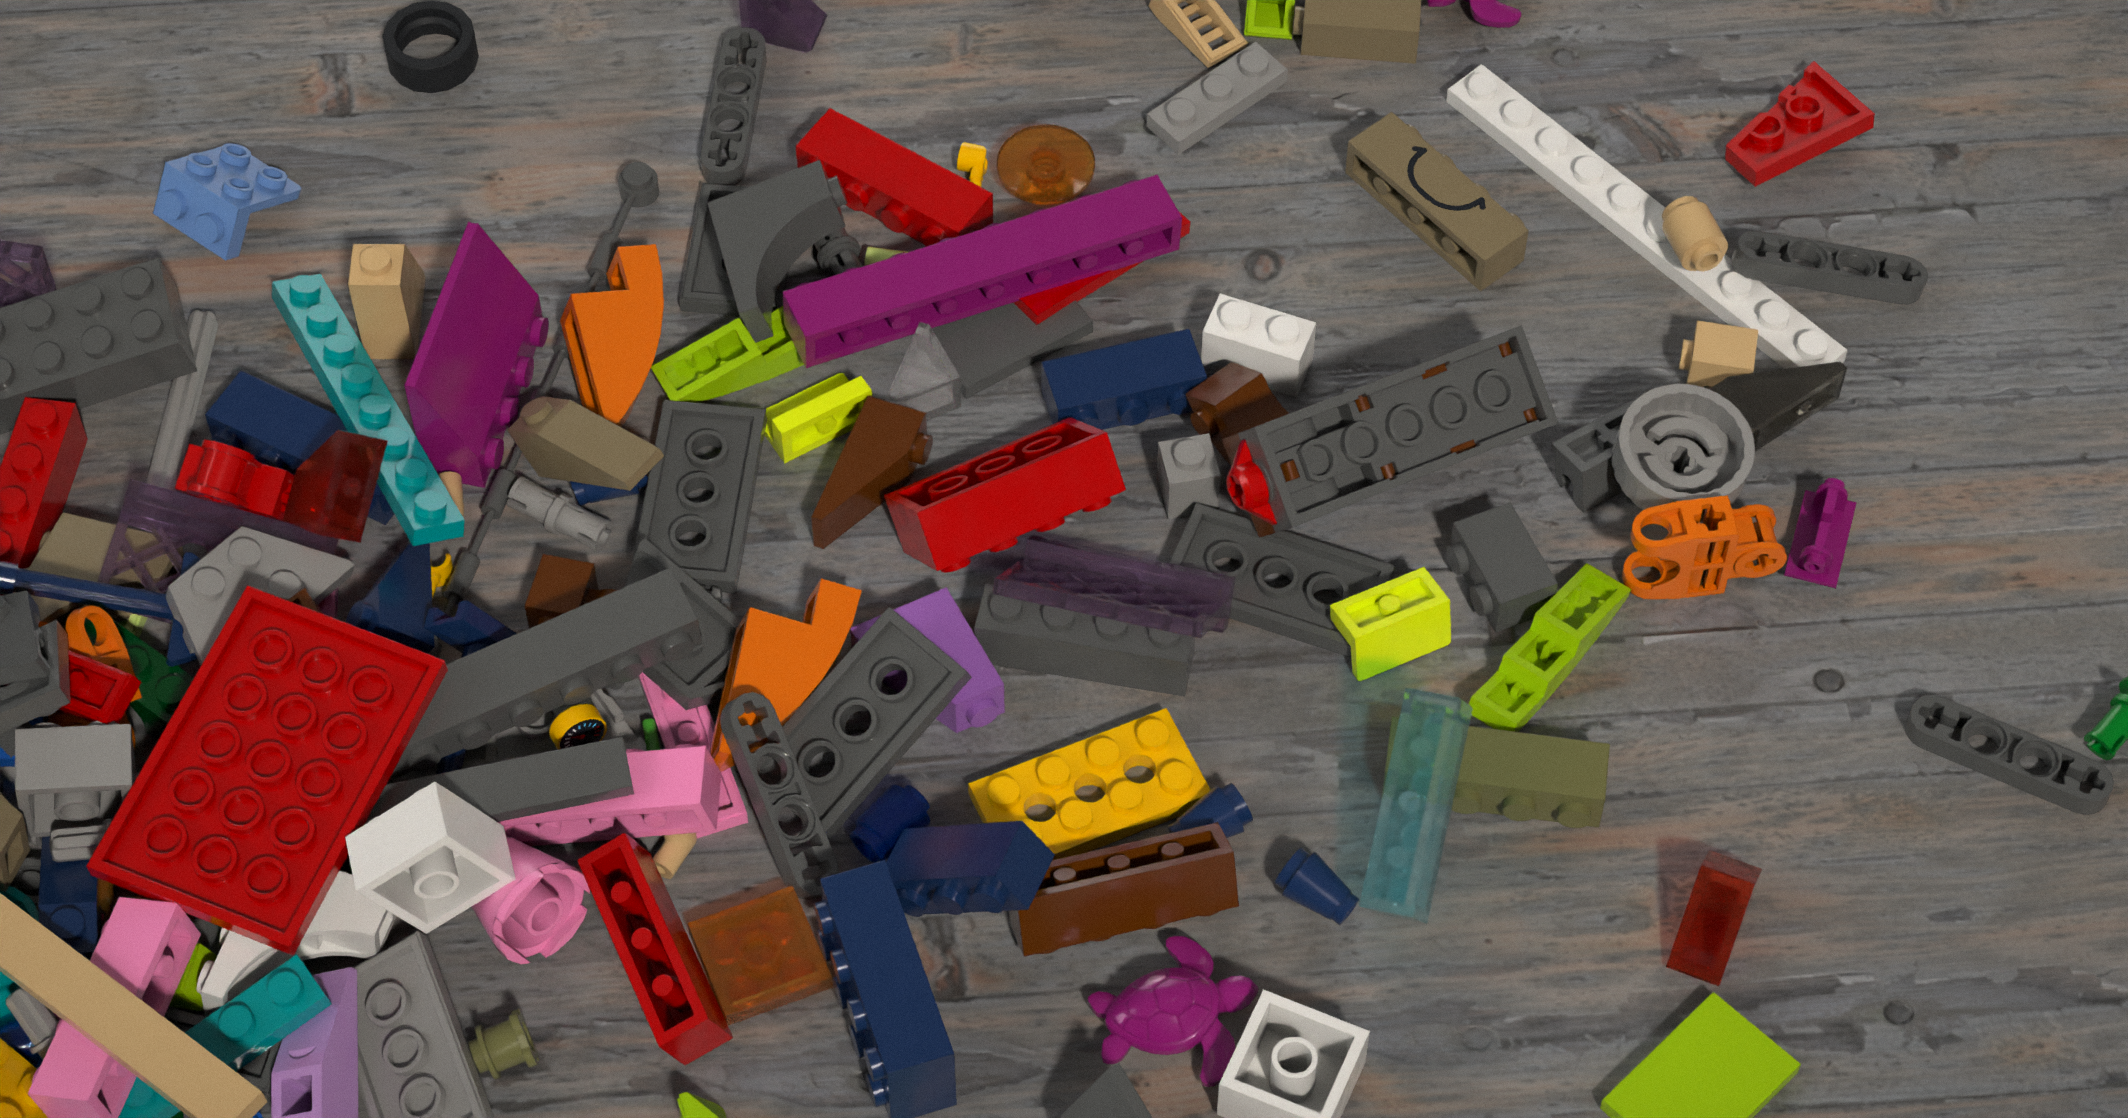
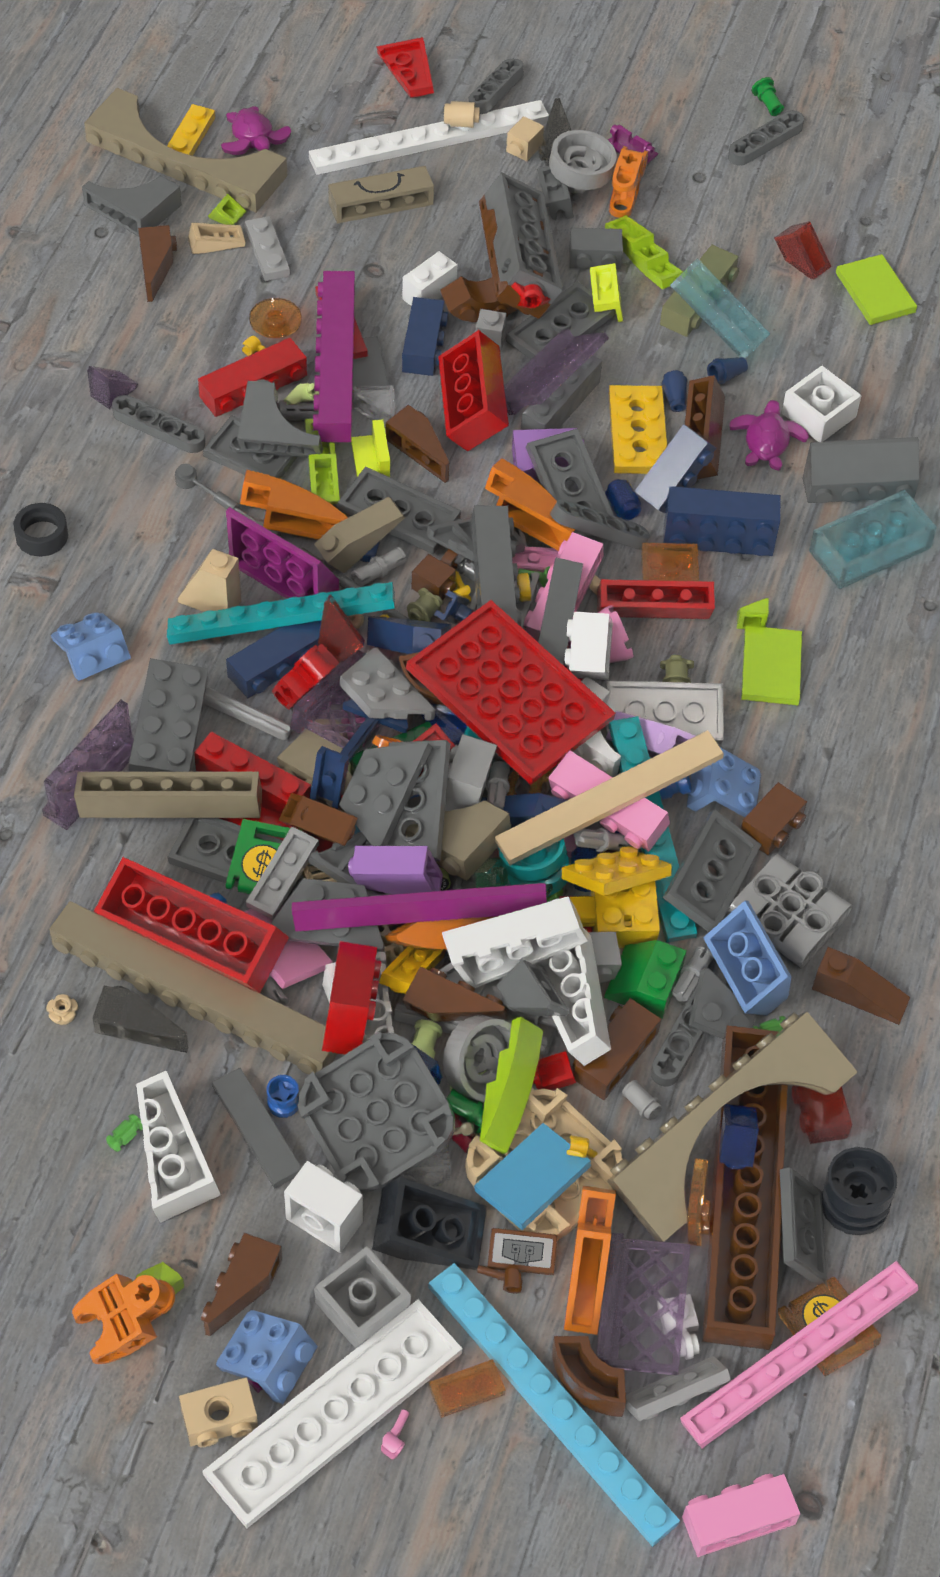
camera: 70 degrees left, 0 degrees up
(499, 604) = (424, 606): none -> olive brick

